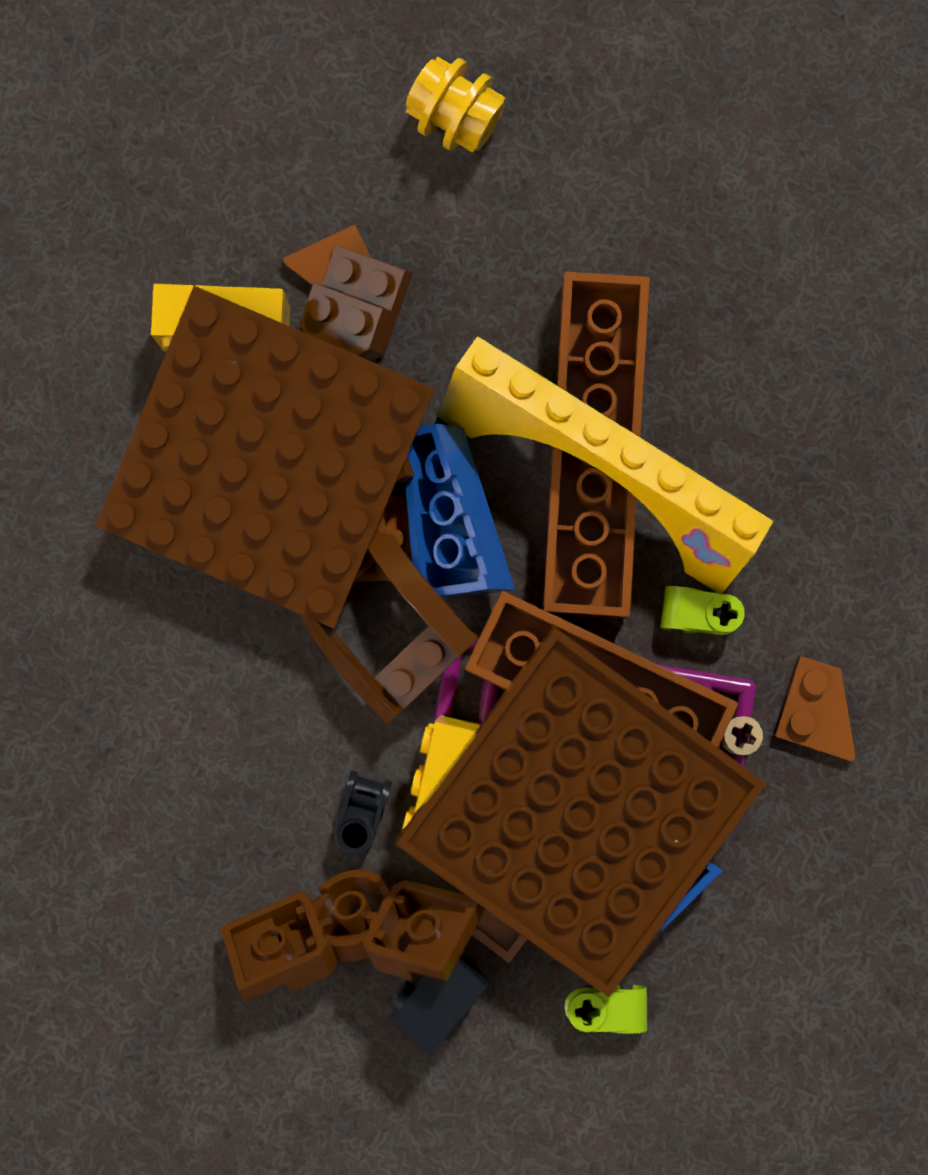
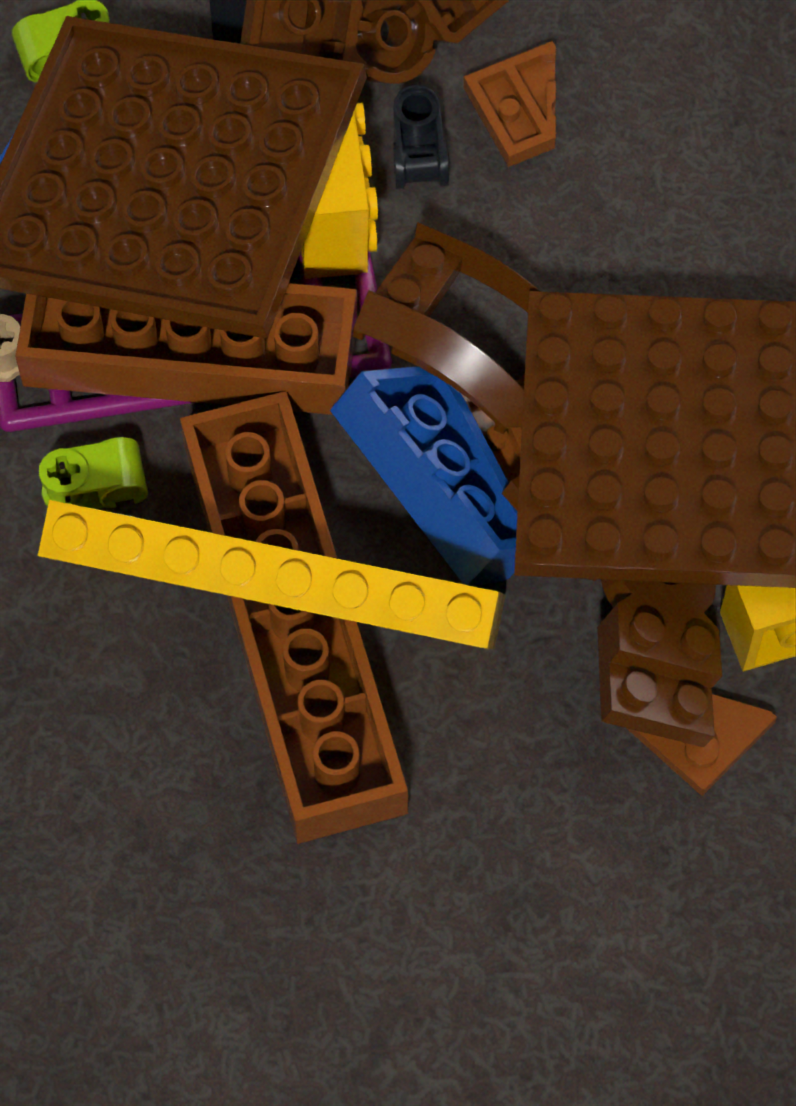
camera: 160 degrees right, 20 degrees down
(270, 823) = (518, 102): none -> dark orange wing
(456, 105) = (635, 969): yellow piece -> none

